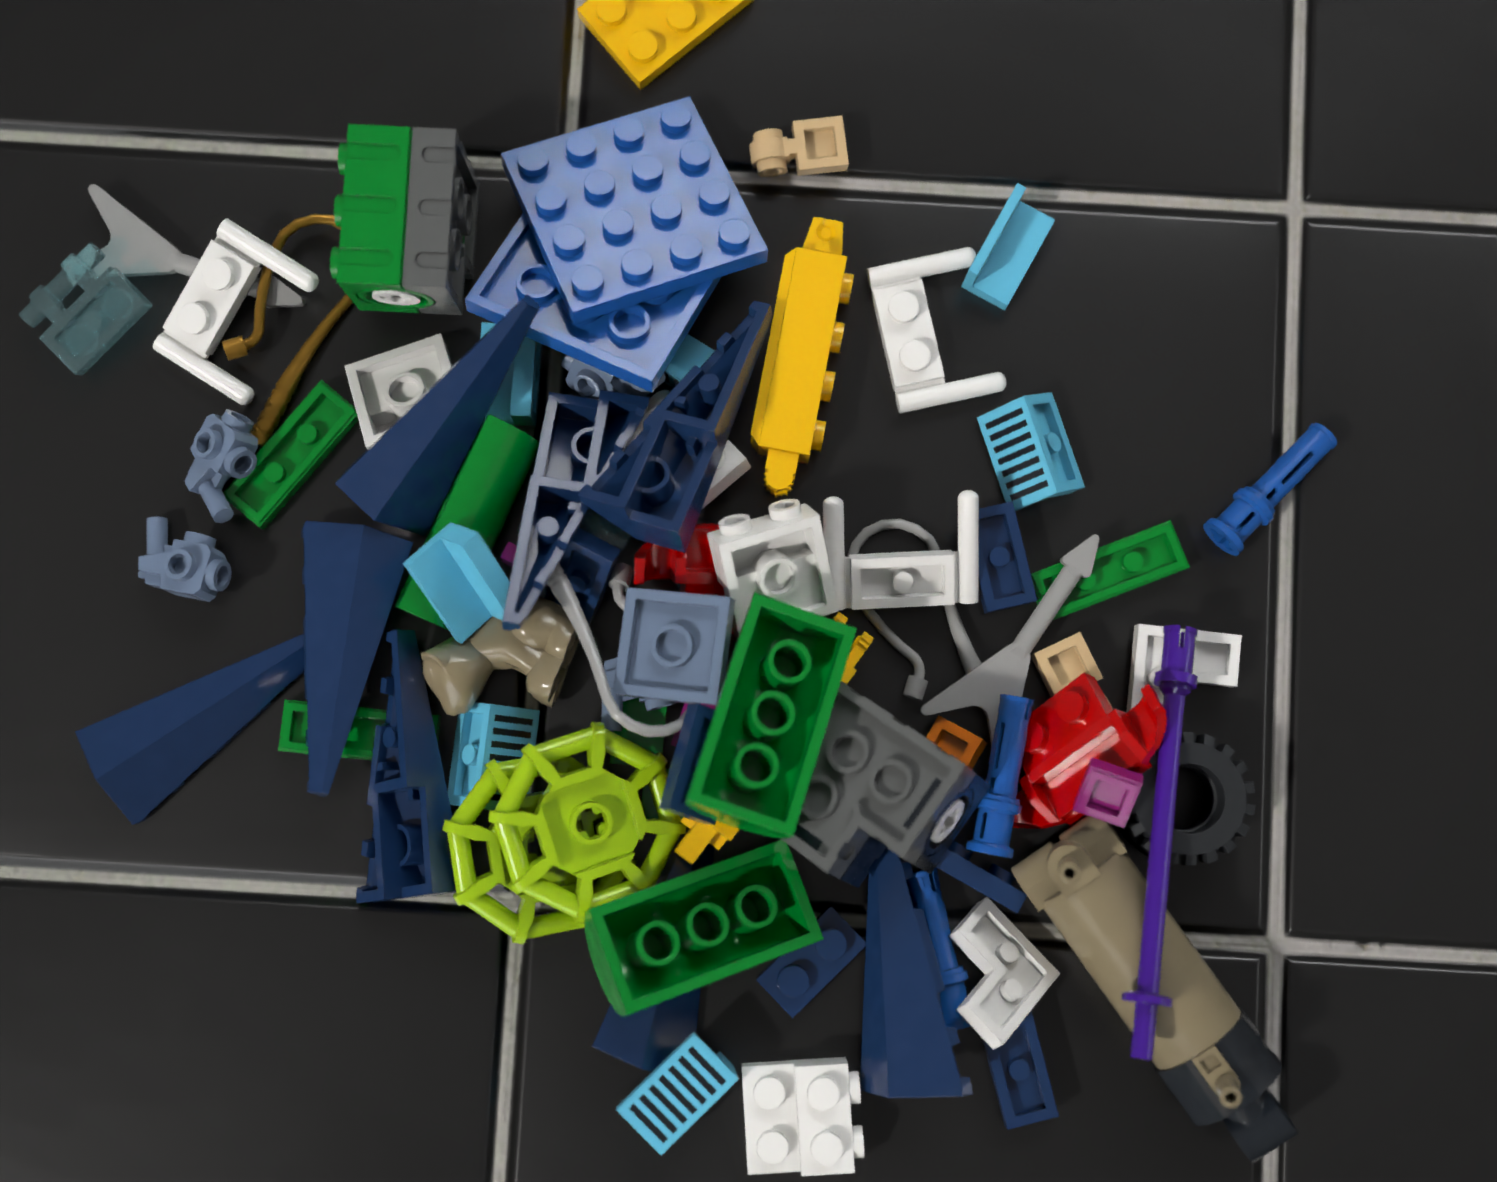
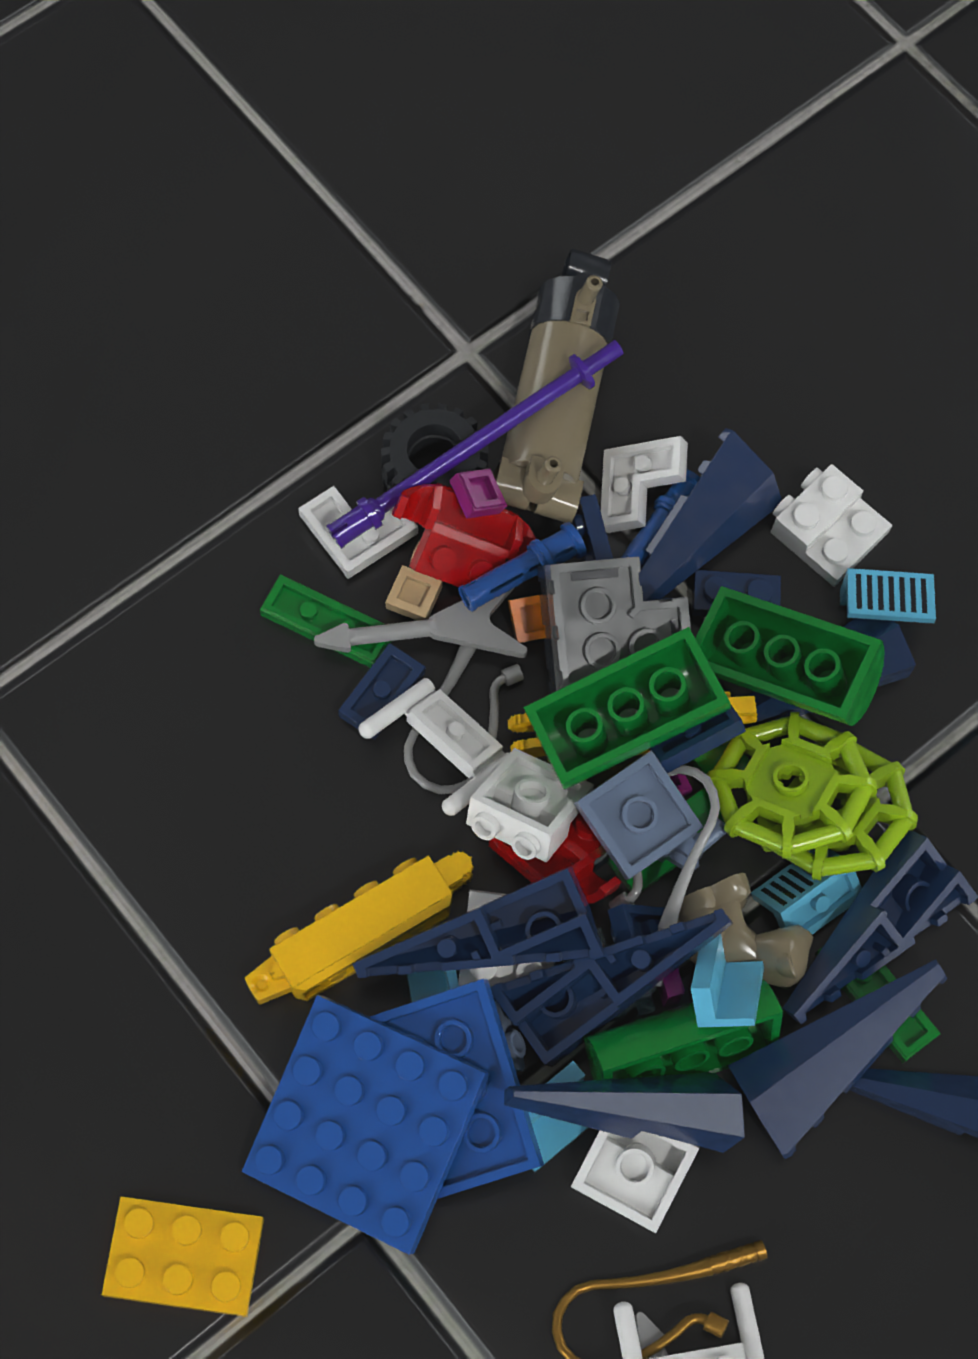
camera: 135 degrees left, 15 degrees down
(186, 568) = (892, 1208): sand blue piece -> none
(221, 451) = (795, 1260): sand blue piece -> none
(293, 454) = (747, 1216): green tile -> none
(405, 219) = (527, 1255): piece -> none
(815, 145) = (203, 1049): tan plate -> none
(910, 335) = (278, 876): white plate -> none
(1007, 251) = (164, 859): medium azure panel -> none
(1021, 1077) = (687, 417): dark blue plate -> none
(1030, 450) = (292, 729): medium azure panel -> none
(1256, 504) = (200, 567): blue pin -> none

